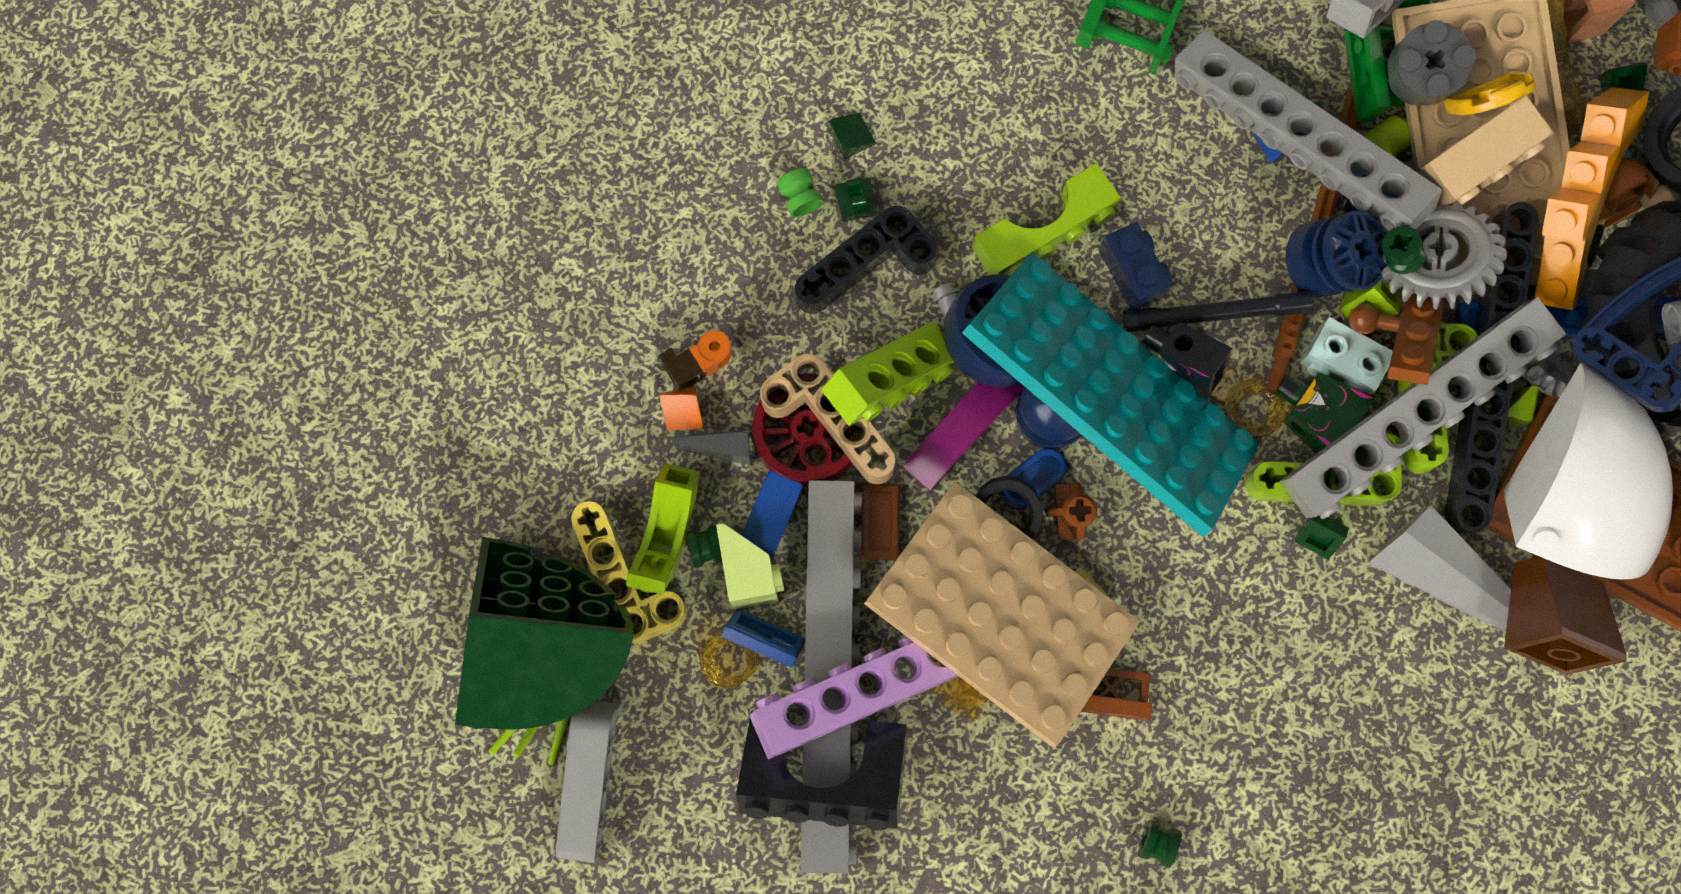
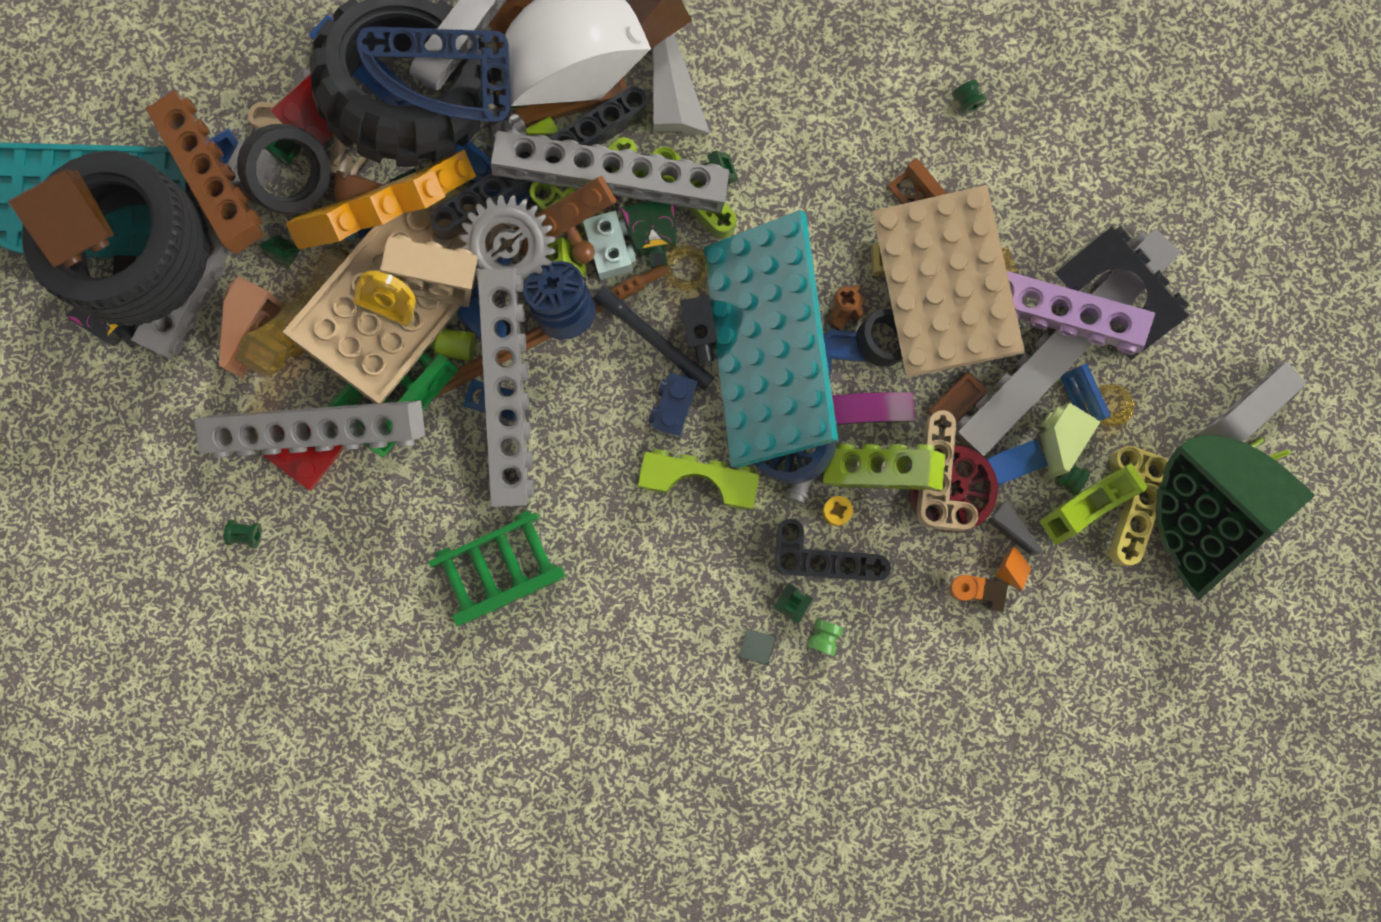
camera: 135 degrees left, 5 degrees up
(893, 321) = (833, 513): none -> yellow wheel
(1401, 259) = (532, 254): dark green wheel -> none
(1451, 59) = (399, 332): dark grey brick -> none

